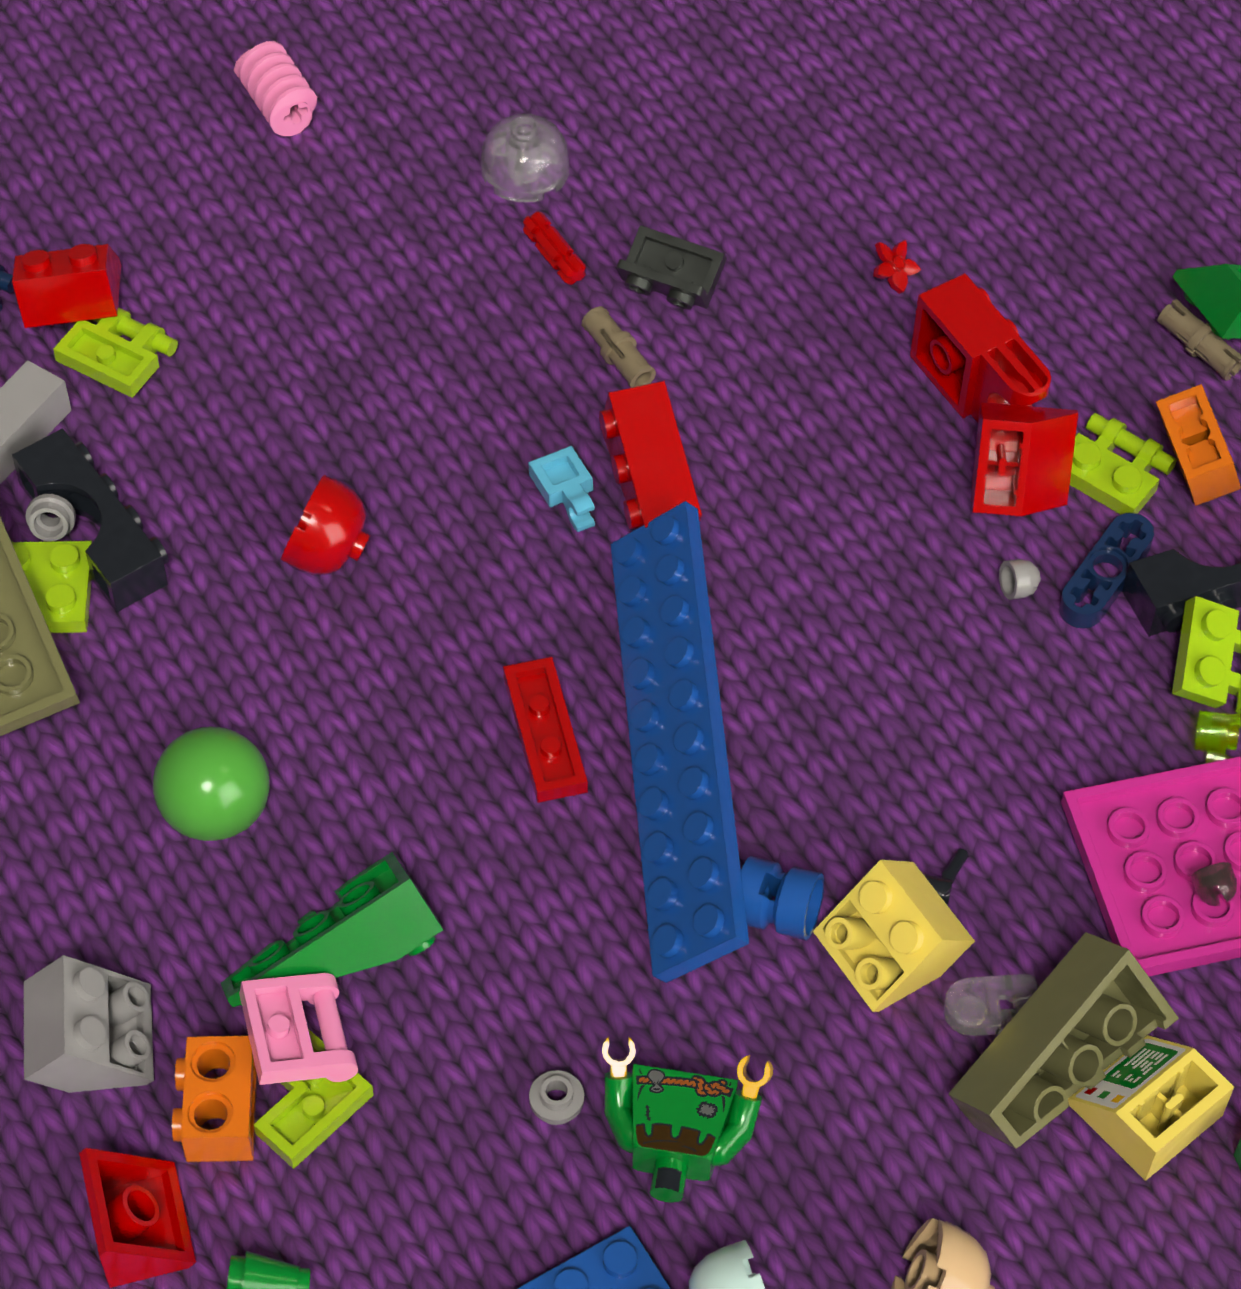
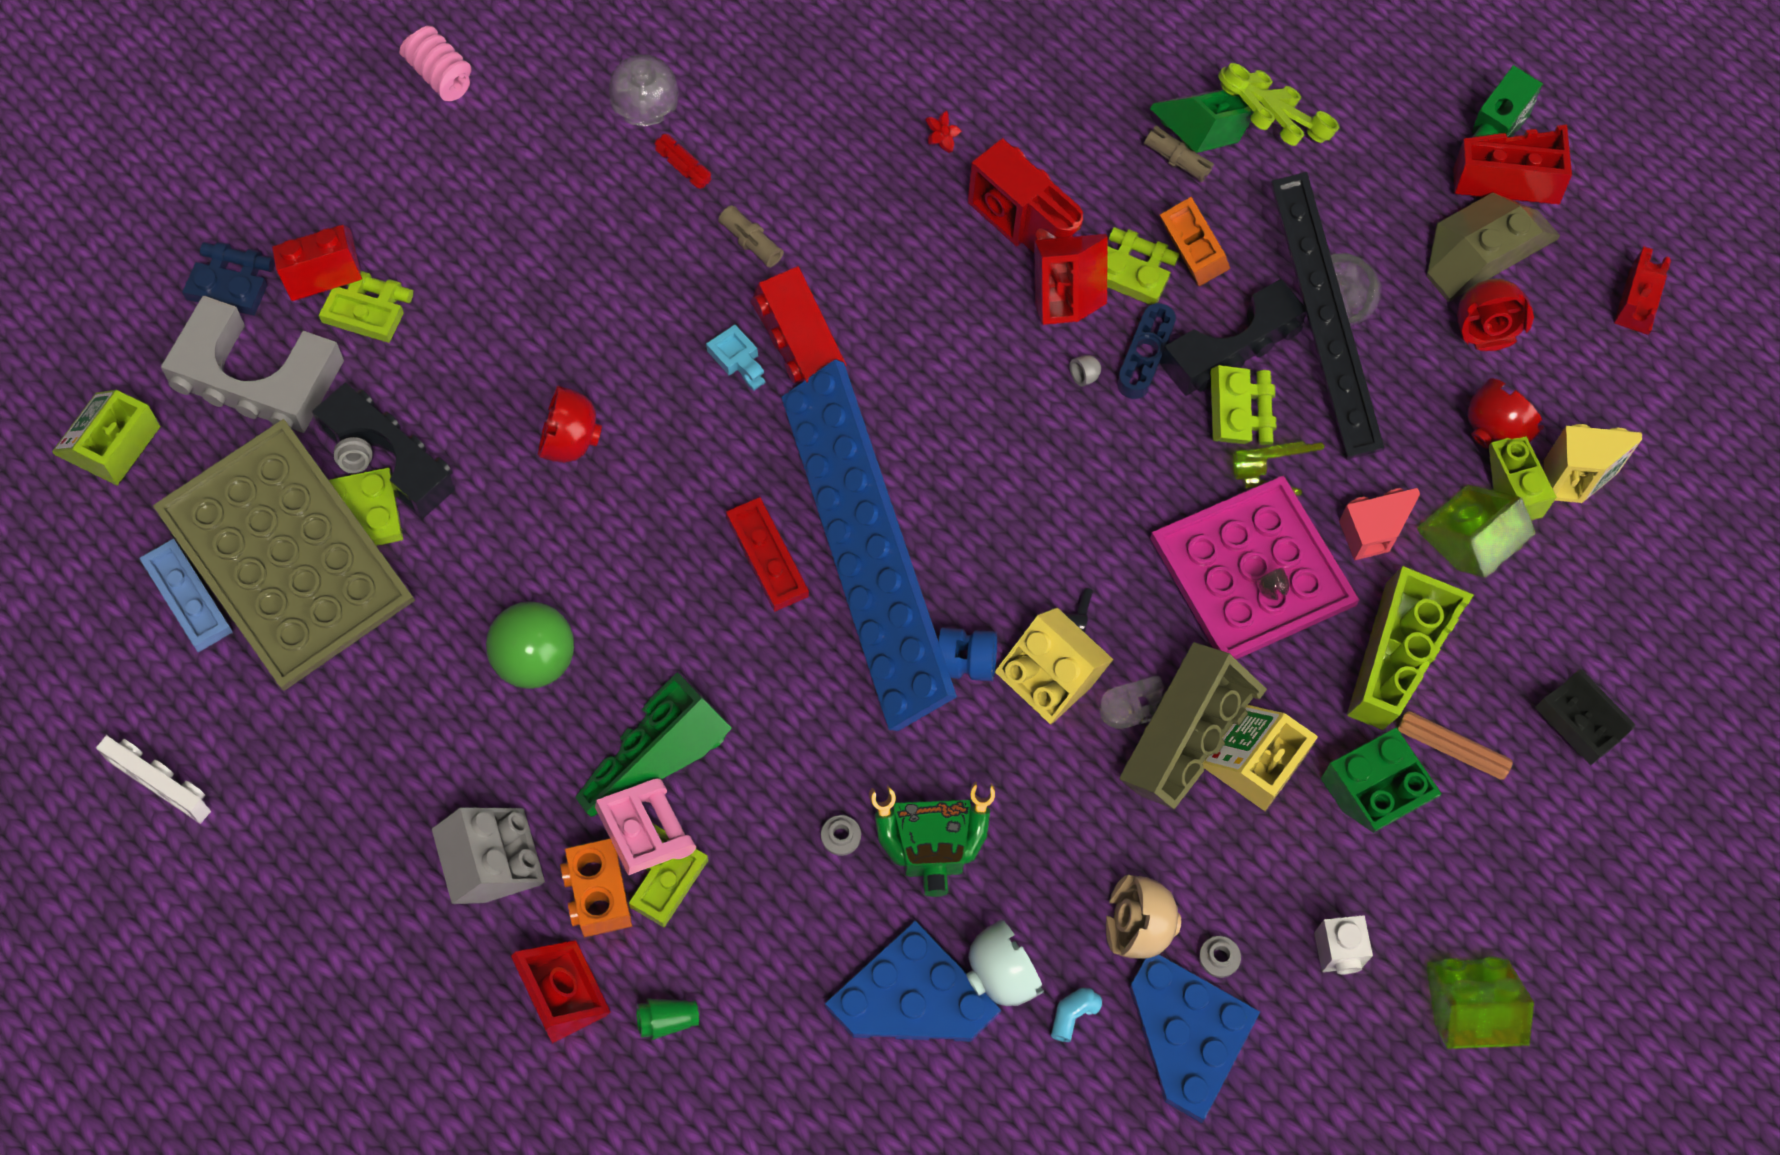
camera: 15 degrees left, 10 degrees up
(672, 268) = (776, 163): pearl dark grey bracket -> none

